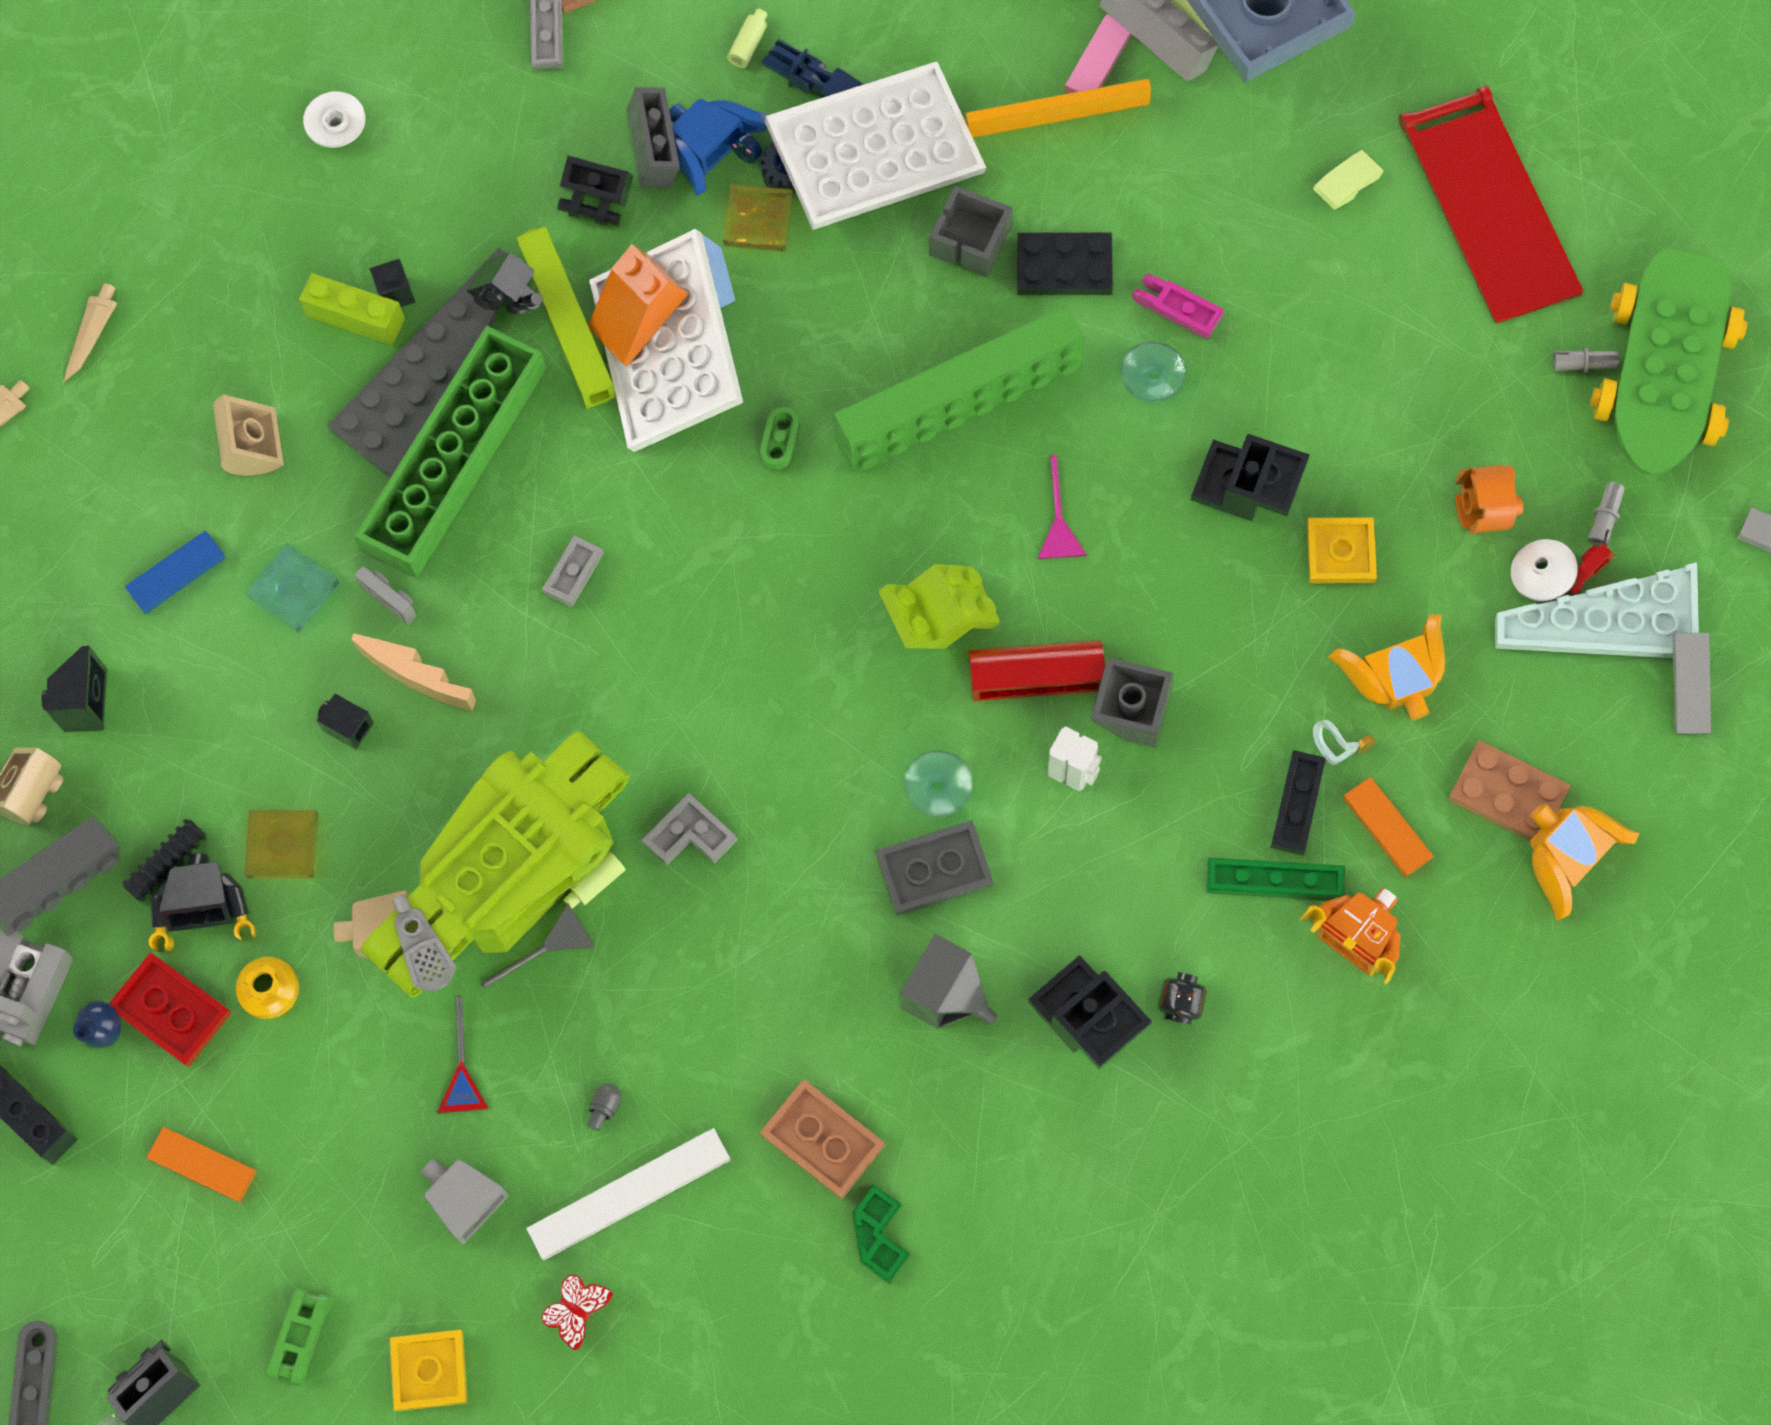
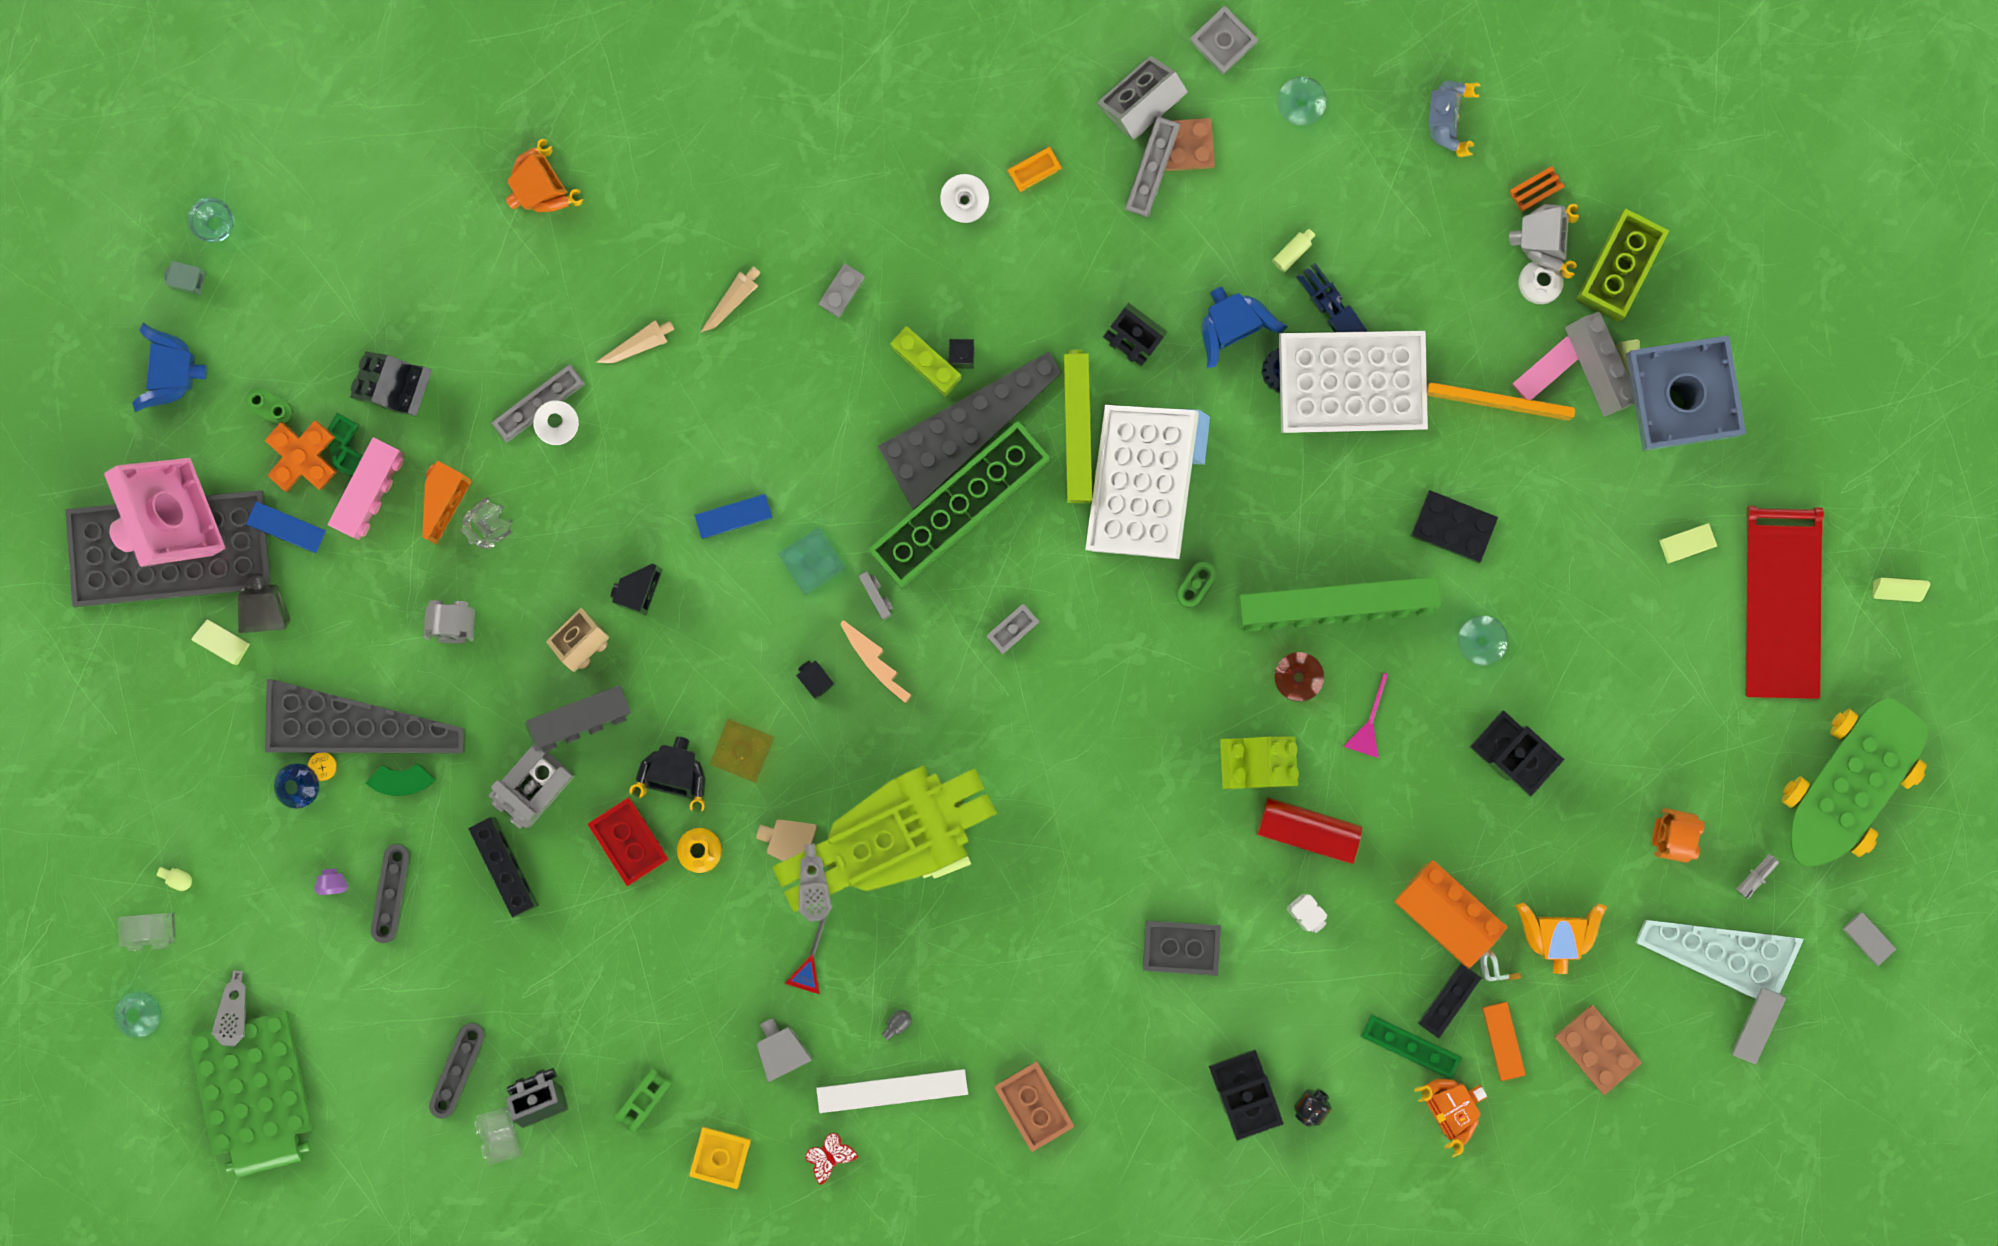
camera: 20 degrees right, 15 degrees up
(97, 1024) = (576, 834): dark blue brick -> none
(164, 860) = (658, 732): black piece -> none
(201, 1164) = (616, 957): orange tile -> none
(222, 273) = (841, 290): none -> light grey plate
(247, 436) = (818, 435): tan brick -> none
(407, 64) = (1034, 169): none -> light orange tile
(504, 283) = (1041, 393): brick -> none
(565, 934) = (913, 894): dark grey piece -> none
(634, 304) = (1130, 447): orange slope -> none
(652, 137) = (1192, 309): dark grey brick -> none
(685, 824) = (1024, 848): light grey plate -> none
(746, 148) = (1258, 342): tile -> none
(758, 217) = (1246, 402): clear yellow plate -> none
(875, 1249) = (1045, 1172): green tile -> none
(938, 768) = (1221, 889): clear light blue dish -> none
(944, 481) = (1312, 676): none -> clear red dish
(945, 986) = (1156, 1039): dark grey piece -> none
(974, 231) = (1395, 479): dark grey piece -> none
(1133, 701) = (1365, 886): dark grey slope -> none
(1179, 305) = (1523, 595): dark pink hinge -> none
(1252, 694) = (1450, 914): none -> orange slope
(1341, 550) = (1558, 828): yellow plate -> none
(1548, 582) = (1698, 912): white dish -> none
(1569, 847) = (1620, 1109): light orange torso -> none
(1585, 360) = (1796, 753): light grey axle -> none
(1593, 561) = (1732, 909): red plate -> none
(1618, 137) = (1900, 589): none -> yellowish green slope

